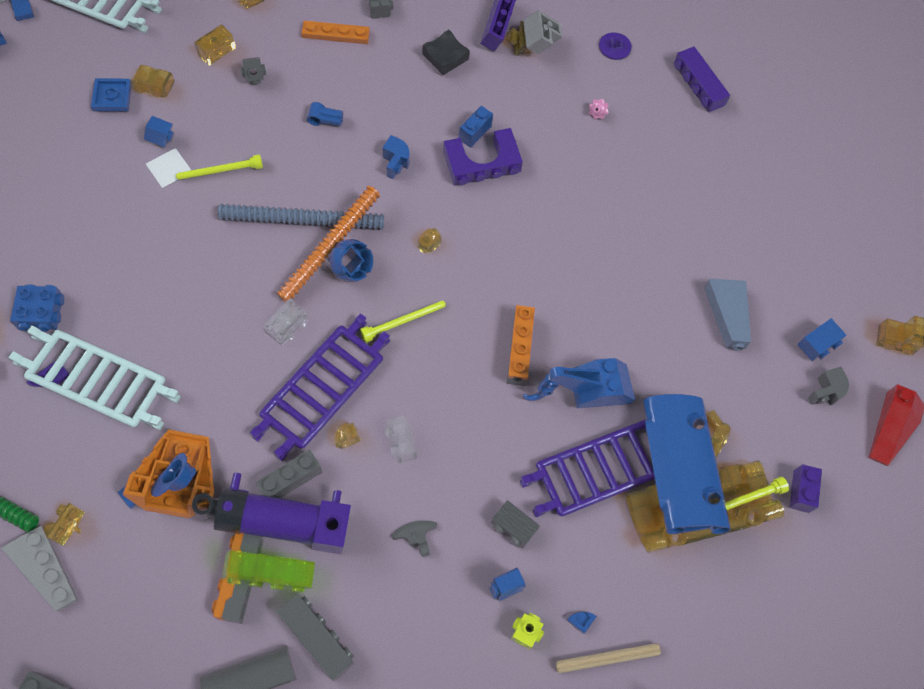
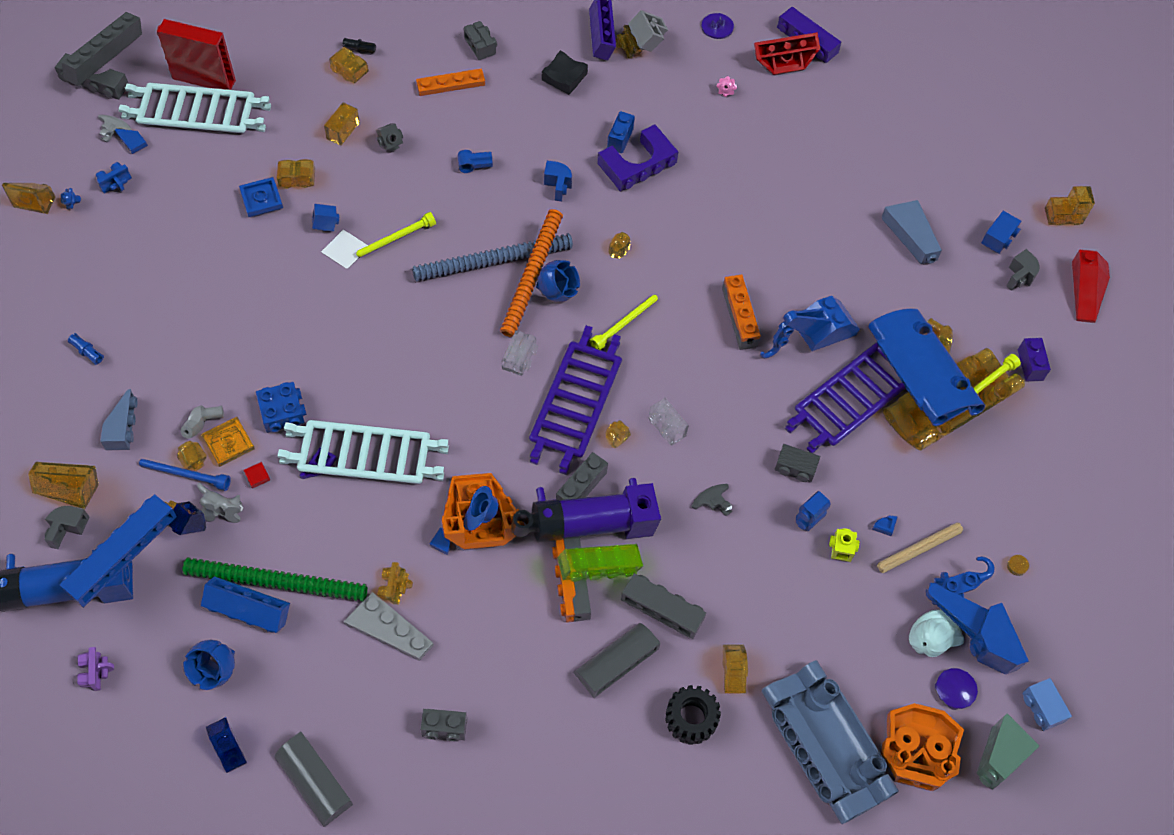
camera: 15 degrees left, 5 degrees down
(671, 92) = (787, 53): none -> red wedge

